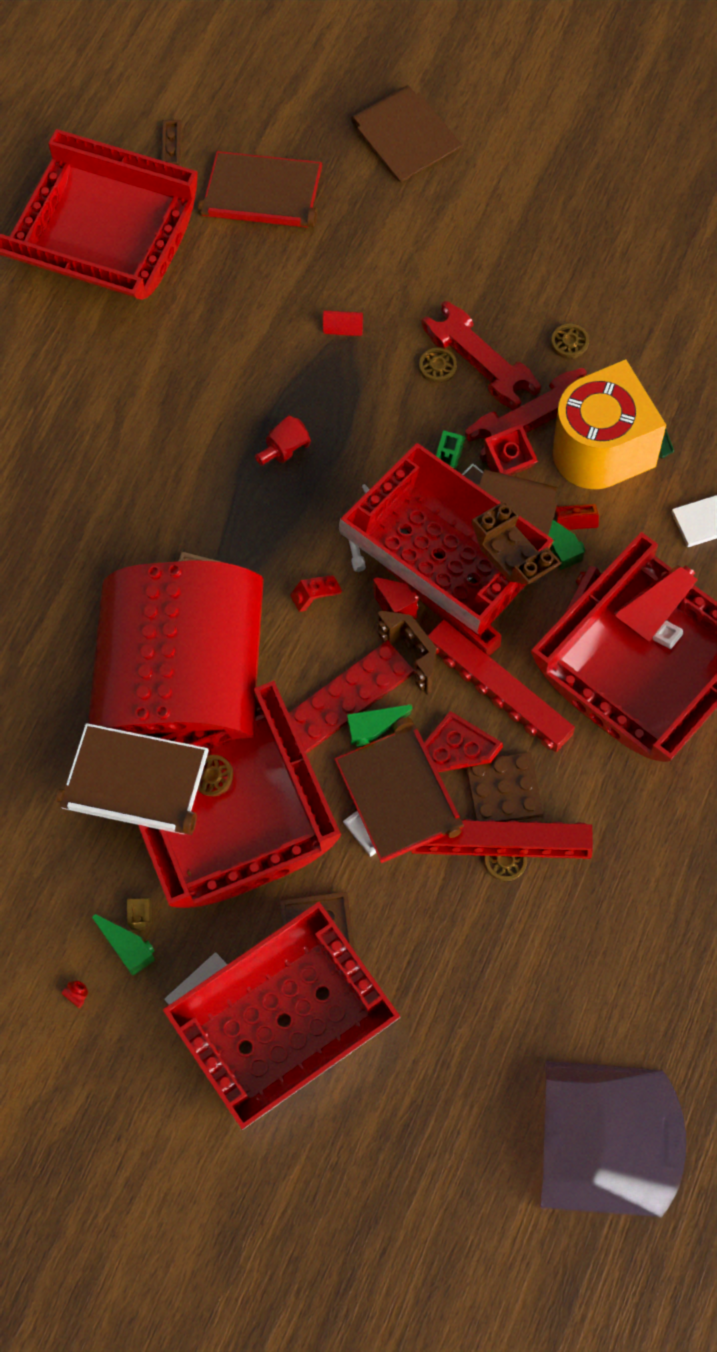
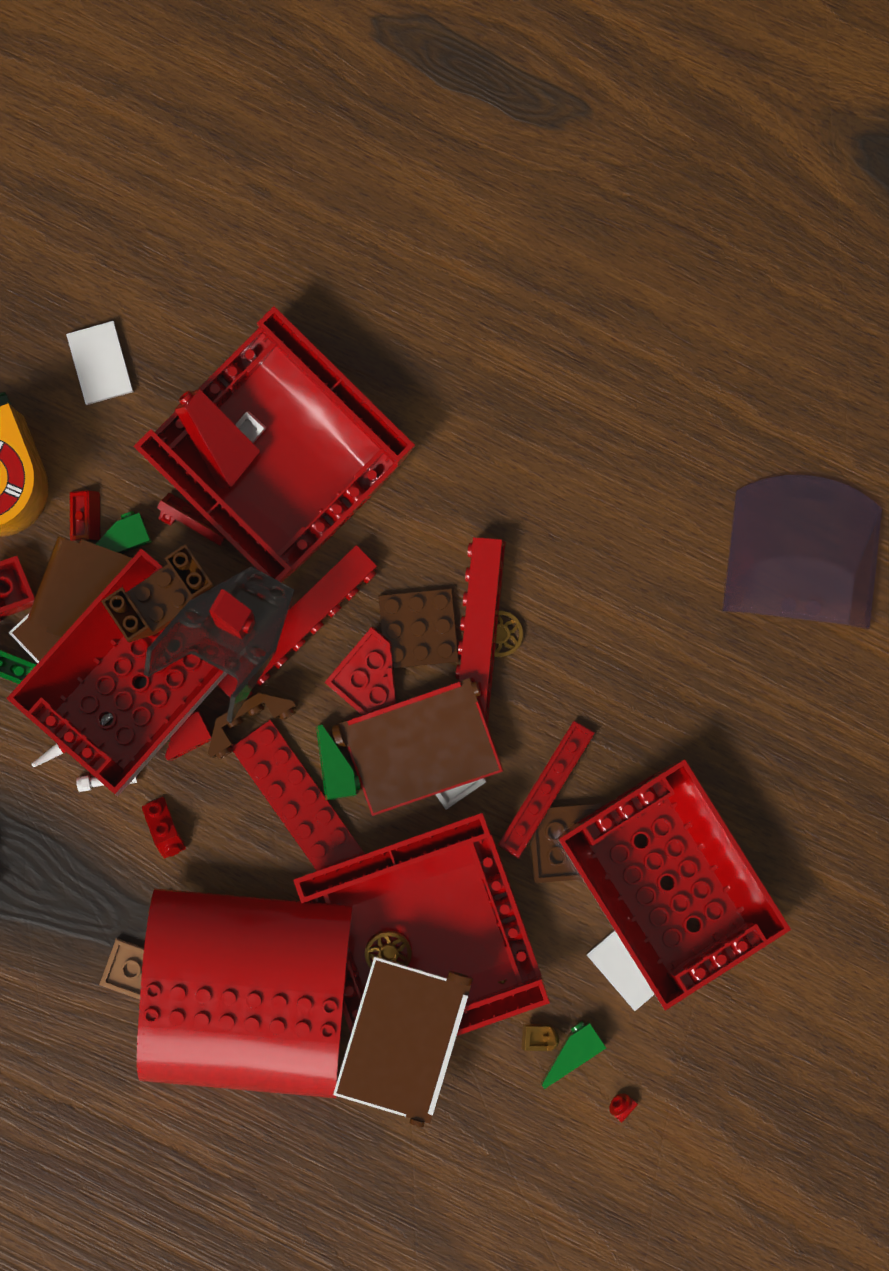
camera: 90 degrees left, 20 degrees up
(366, 906) = (546, 789): none -> red tile
(490, 593) = (197, 634): none -> clear smoke windscreen
(503, 597) = (232, 615): none -> red slope

